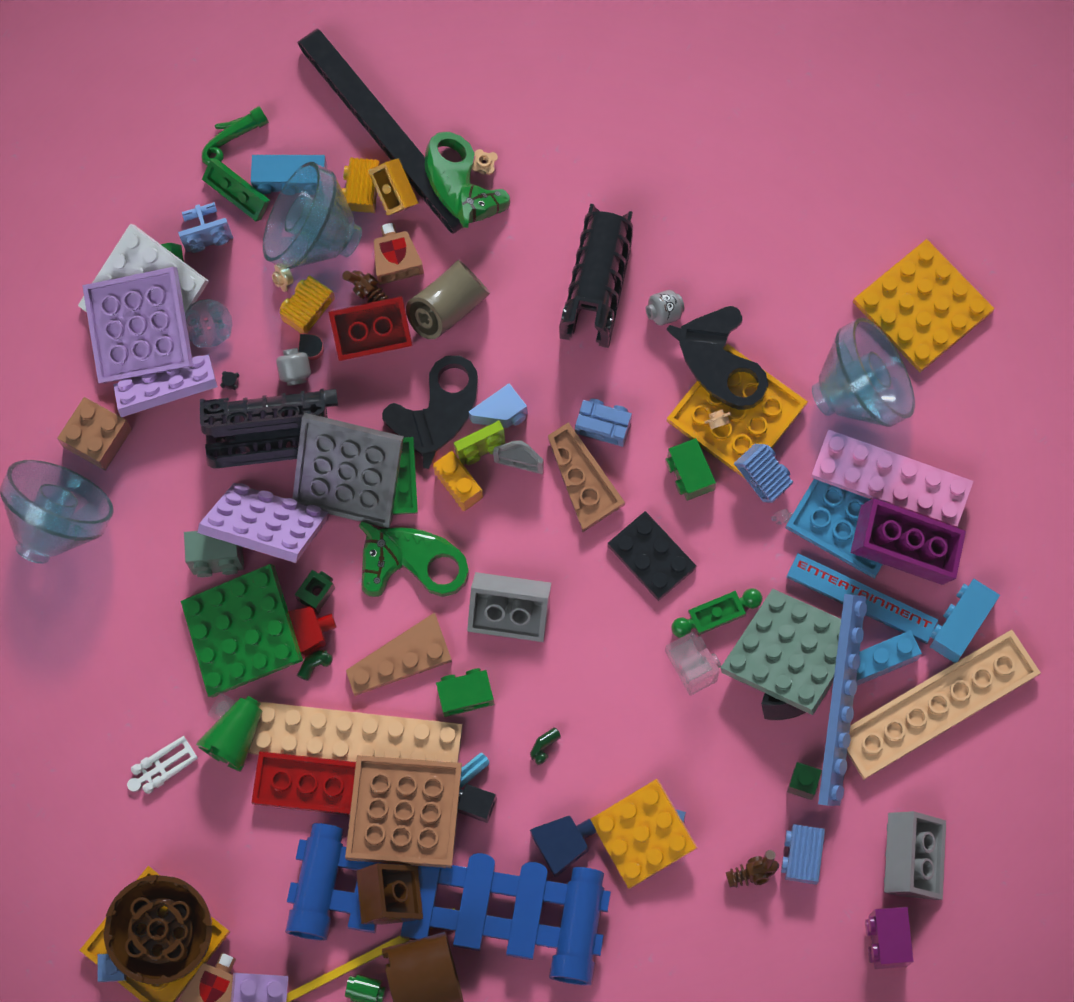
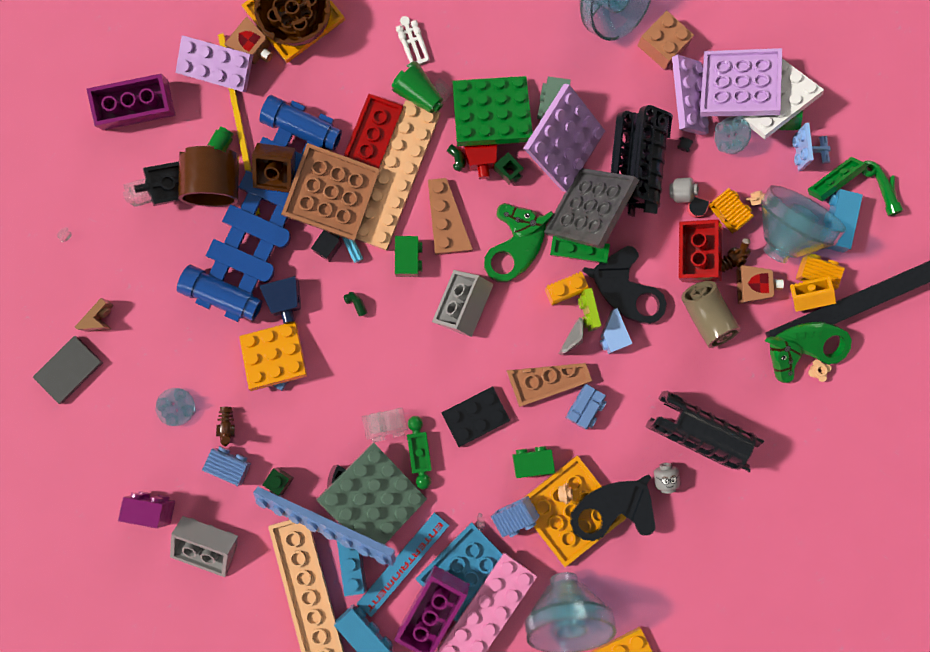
camera: 100 degrees right, 10 degrees up
(755, 958) = (183, 402): none -> clear light blue plate

